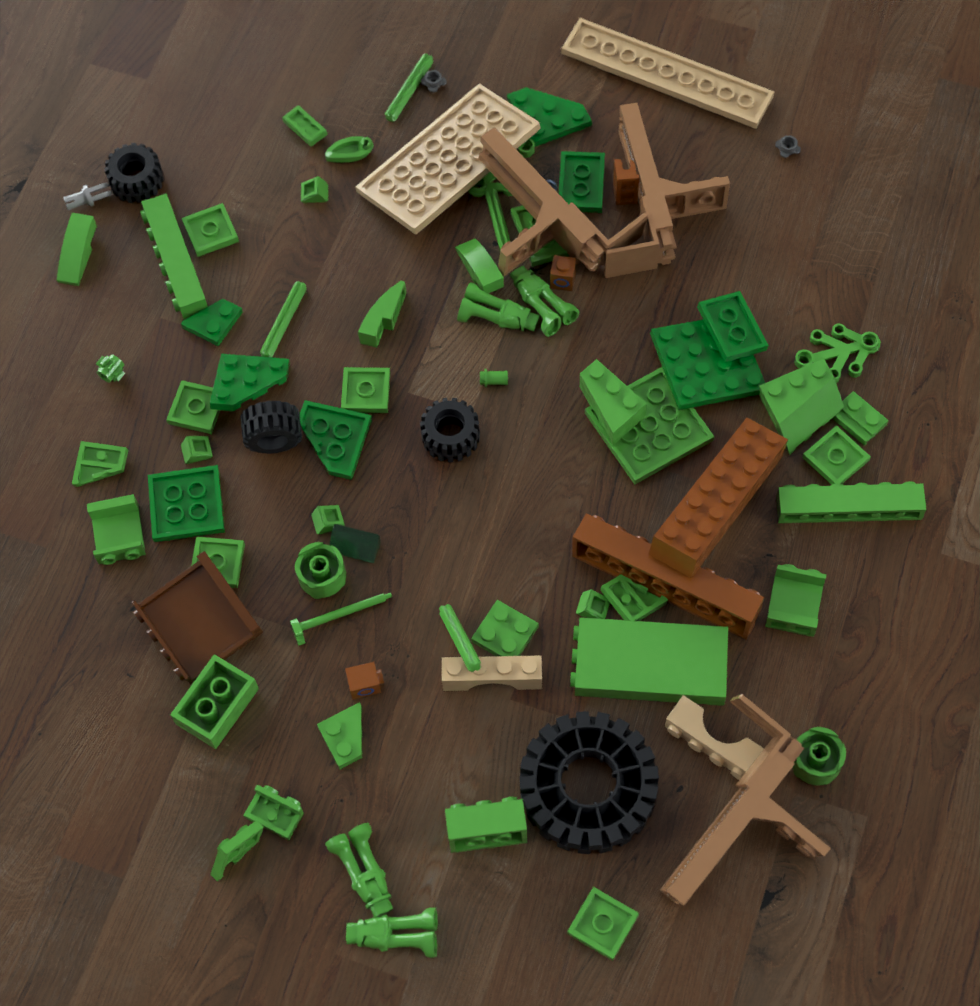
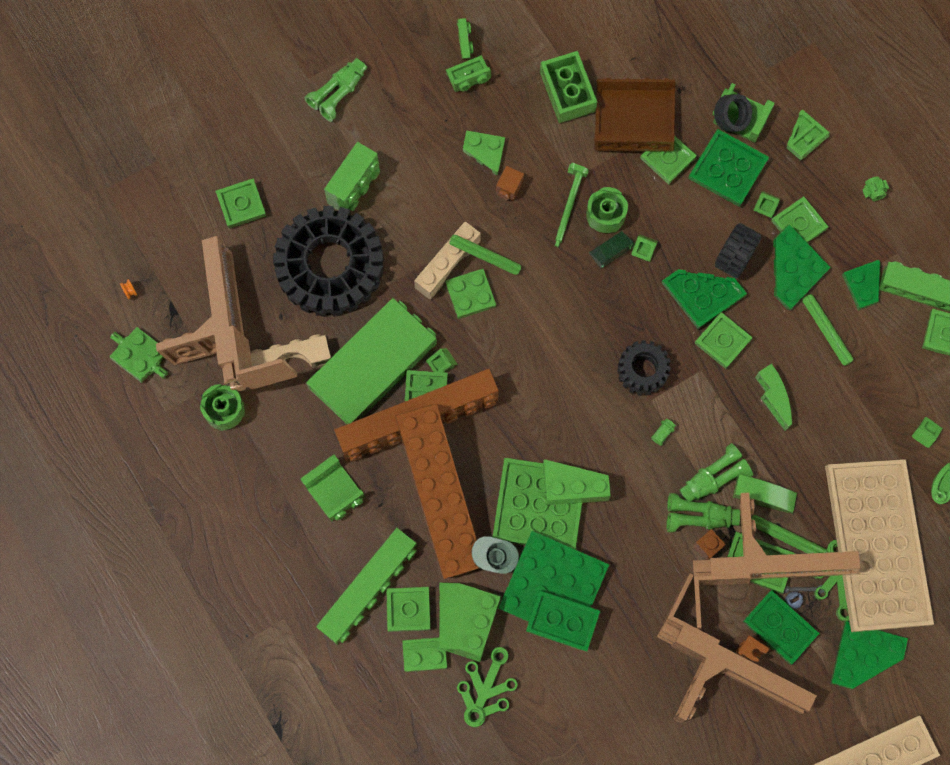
camera: 125 degrees right, 10 degrees up
(126, 531) = (721, 112): none -> black tyre
(370, 884) = (378, 95): bright green piece -> none
(728, 416) = (494, 555): none -> sand green piece
(789, 956) = (128, 289): none -> orange bush
(841, 888) = (138, 355): none -> bright green plate

